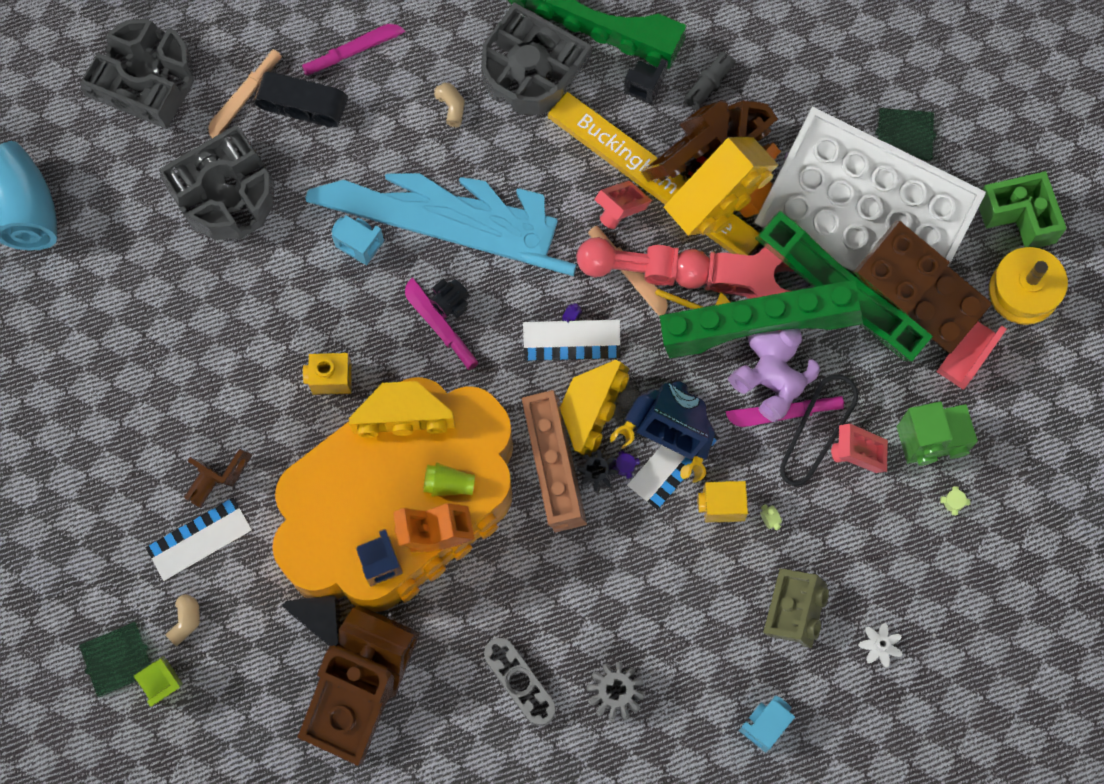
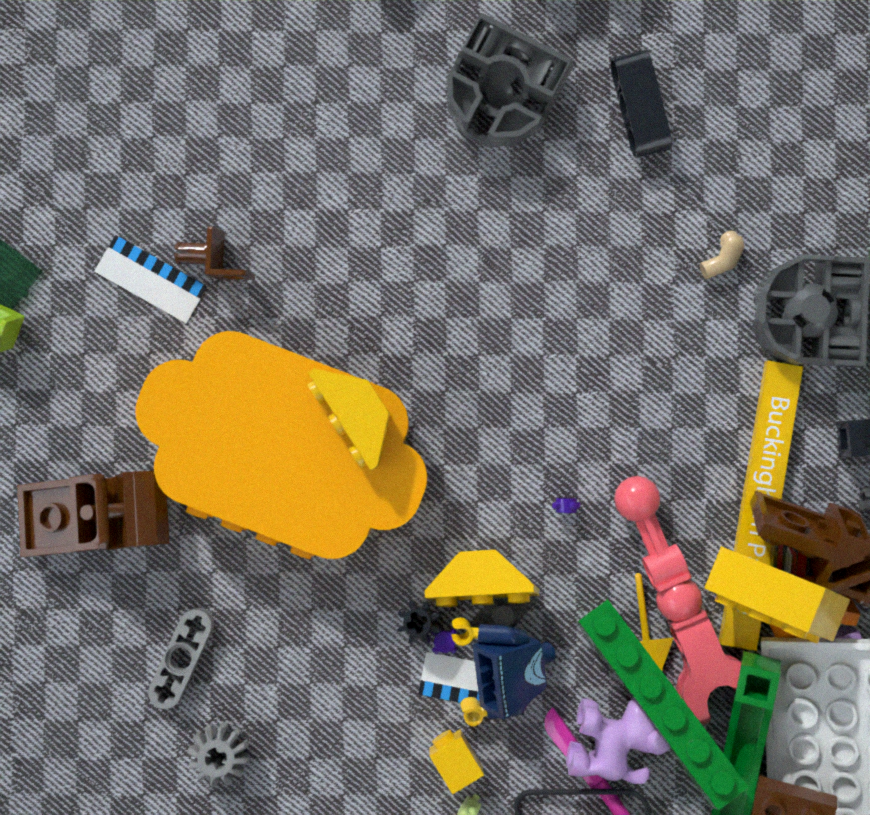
camera: 55 degrees right, 15 degrees up
(187, 619) = (69, 317): tan arm -> none
(240, 97) = (613, 41): light nougat piece -> none
(319, 615) = (129, 443): black slope -> none
(328, 373) = (372, 305): yellow brick -> none
(353, 47) = (739, 126): dark pink piece -> none
(357, 238) = (525, 248): medium azure brick -> none
(379, 559) = (198, 476): dark blue panel -> none
(422, 304) = (488, 371): dark pink piece -> none
(434, 528) = (254, 513): orange brick -> none
(446, 481) = (310, 496): lime cone -> none
(450, 298) = (513, 378): black gear -> none
(461, 220) = (605, 341): medium azure animal -> none
(554, 461) = (402, 576): nougat brick -> none
(571, 340) = (540, 520): white sticker -> none
(621, 202) = (709, 491): coral tile -> none
(646, 289) = (634, 561): light nougat piece -> none

